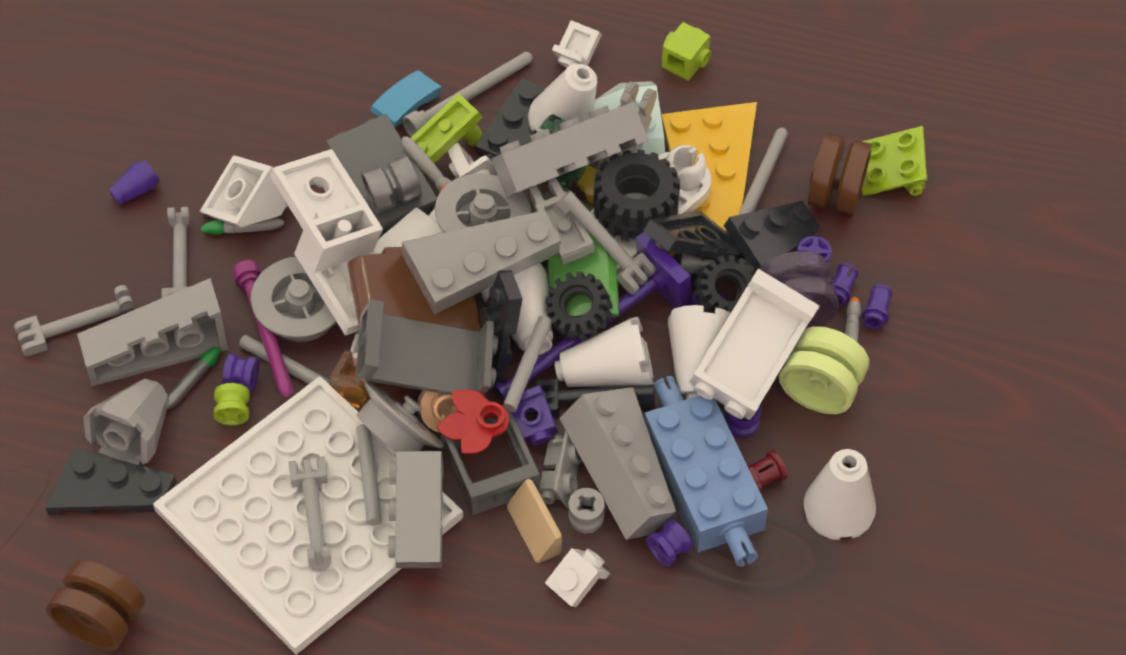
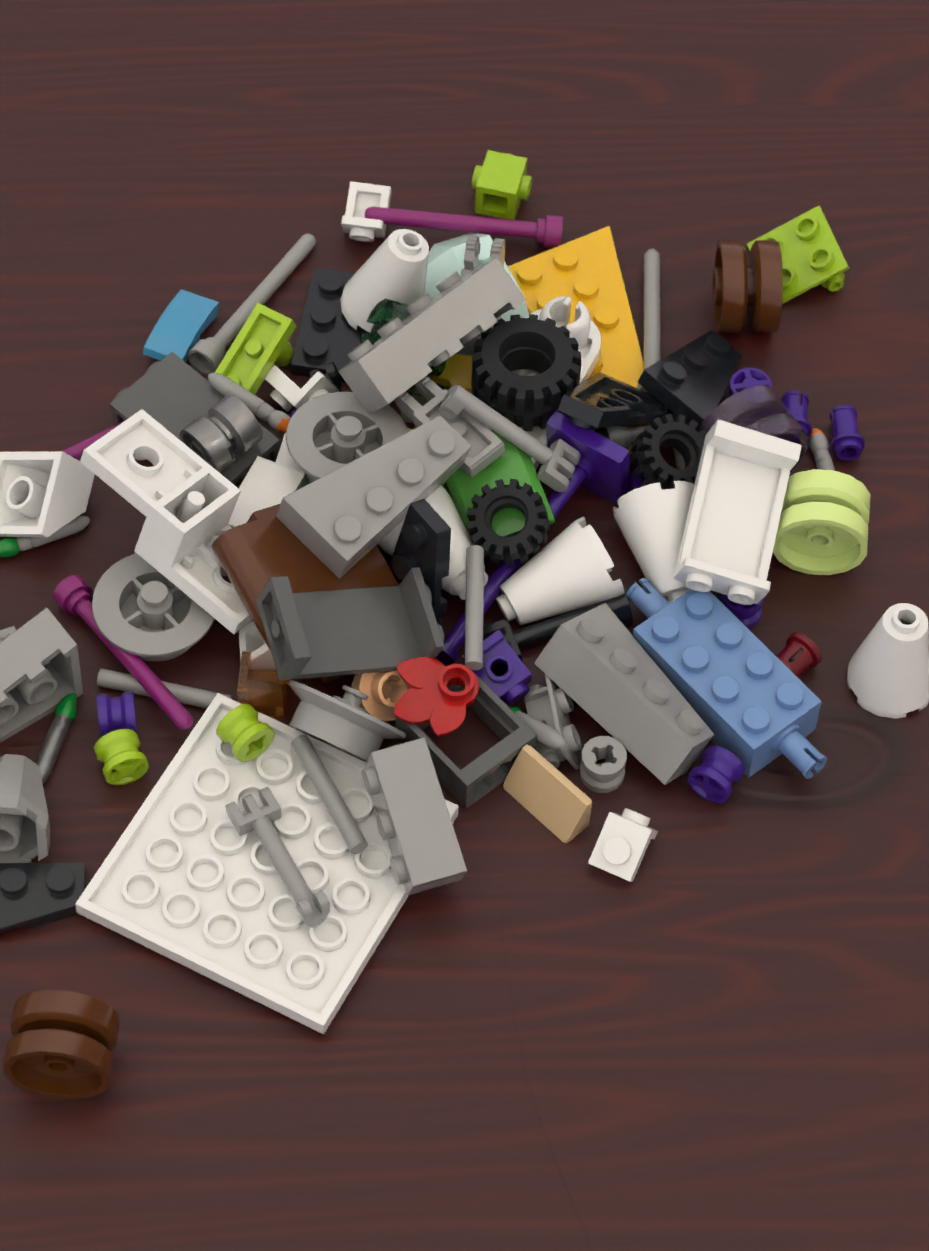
camera: 20 degrees left, 0 degrees up
(323, 411) = (245, 732): none -> lime wheel
(546, 473) = (544, 733): none -> light grey piece
(705, 93) = (544, 231): none -> magenta piece

